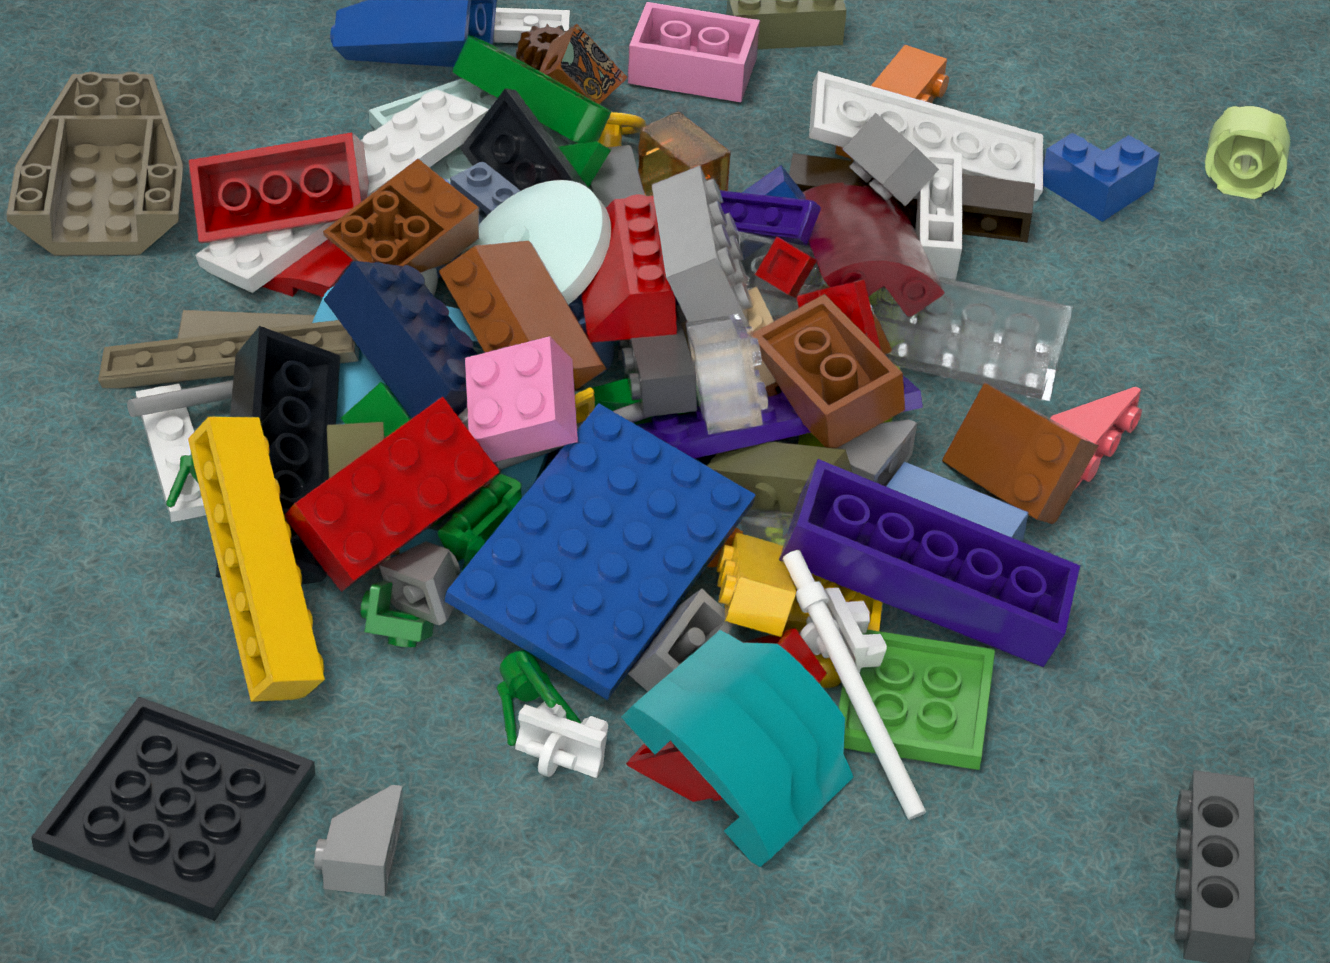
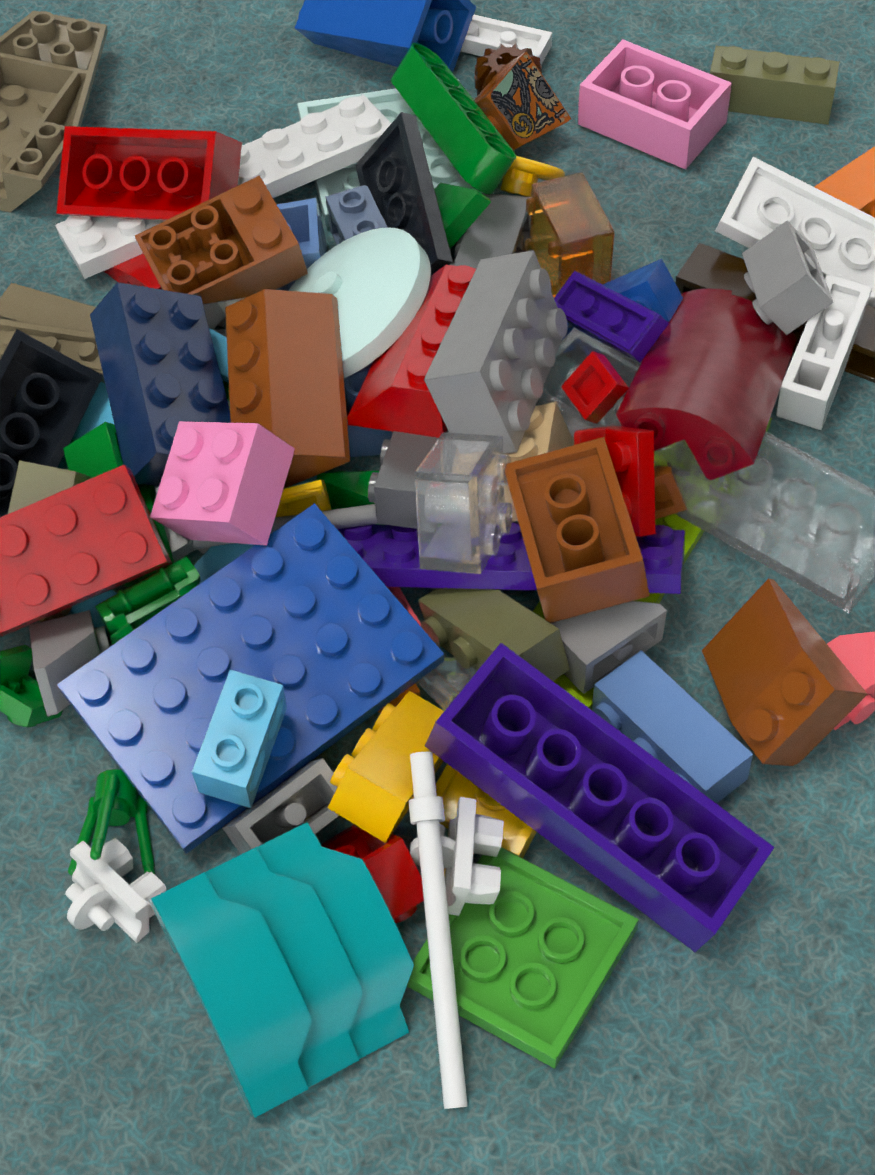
camera: 25 degrees right, 10 degrees up
(633, 586) = (240, 738): none -> medium azure brick

